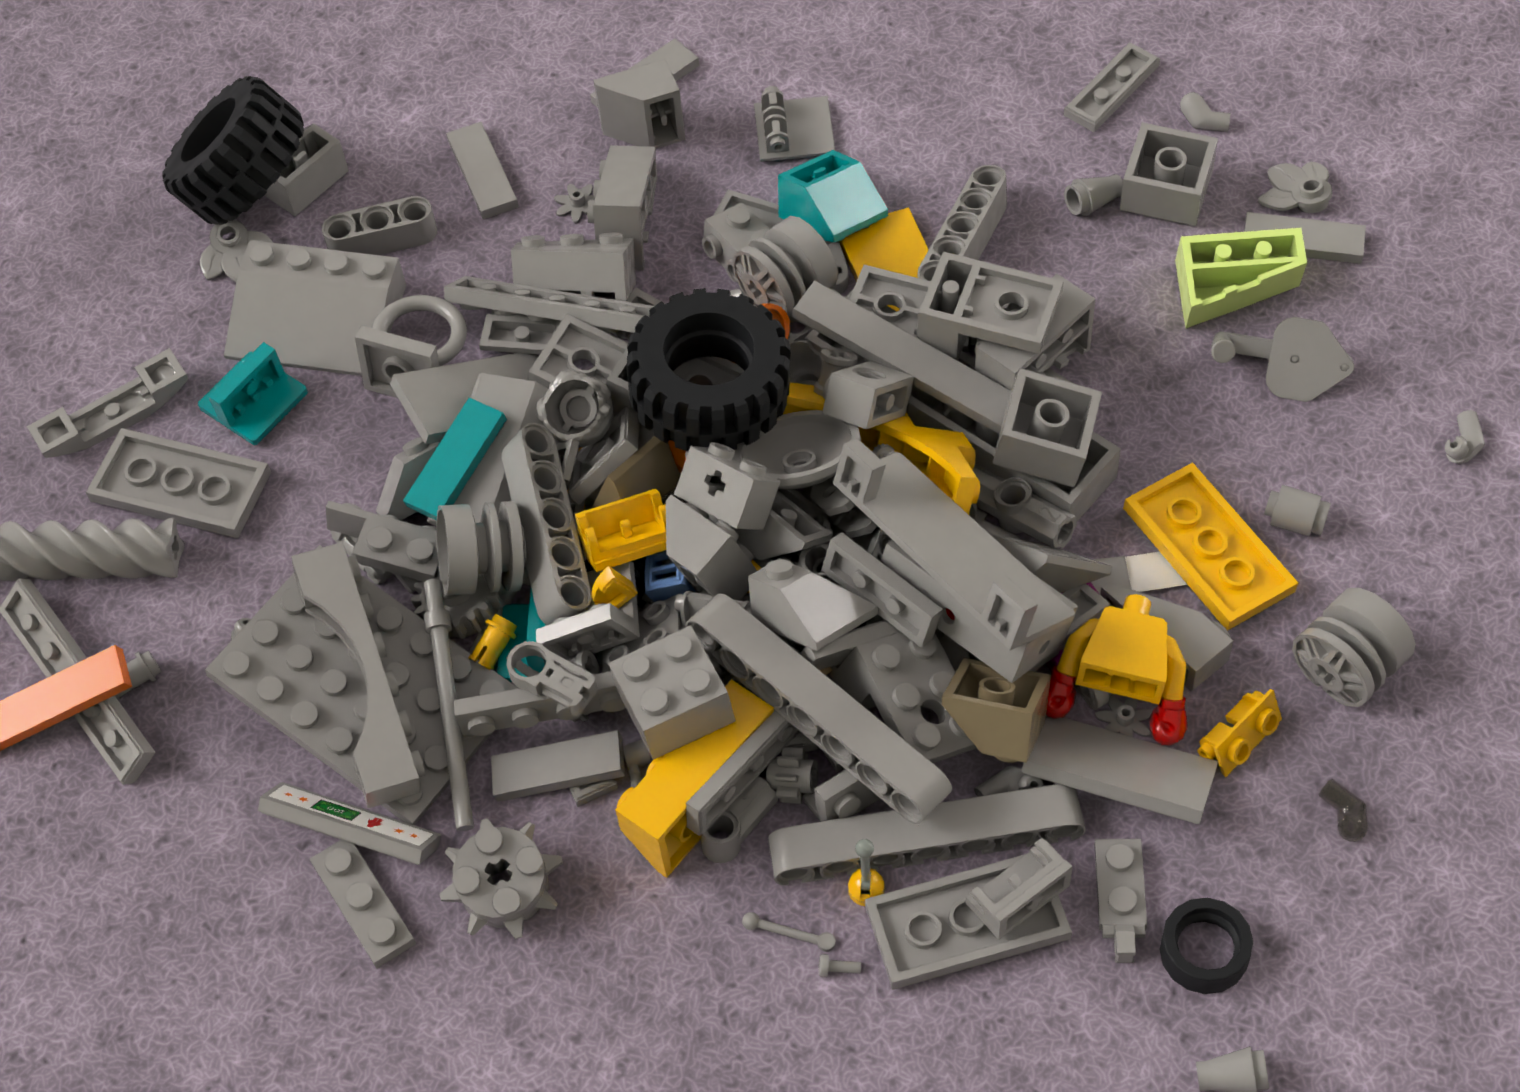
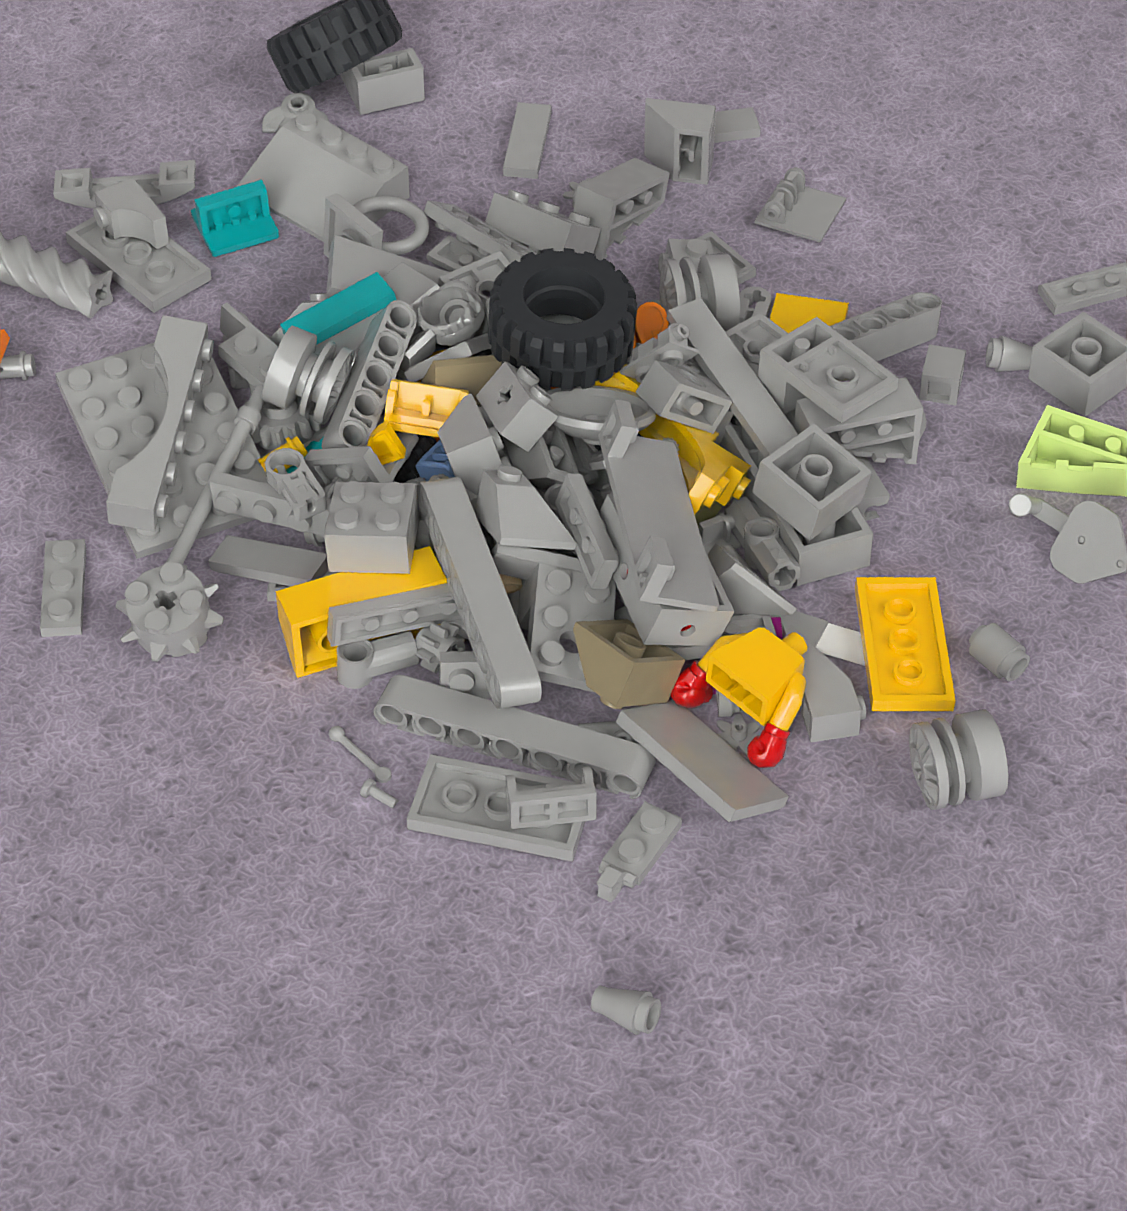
camera: 25 degrees right, 10 degrees down
(145, 440) = (130, 212): none -> light grey arch
(349, 823) = (90, 529): light grey tile -> none
(382, 227) = (418, 145): light grey beam -> none
(831, 196) = (782, 263): teal slope -> none
(832, 355) = (669, 348): none -> light grey hinge
(865, 877) = (441, 742): hinge -> none
(1048, 243) = (942, 374): none -> light grey brick
(1196, 978) = (674, 940): black tyre -> none
(1252, 719) = (826, 785): yellow hinge -> none
(1351, 810) = (871, 881): clear smoke arm -> none

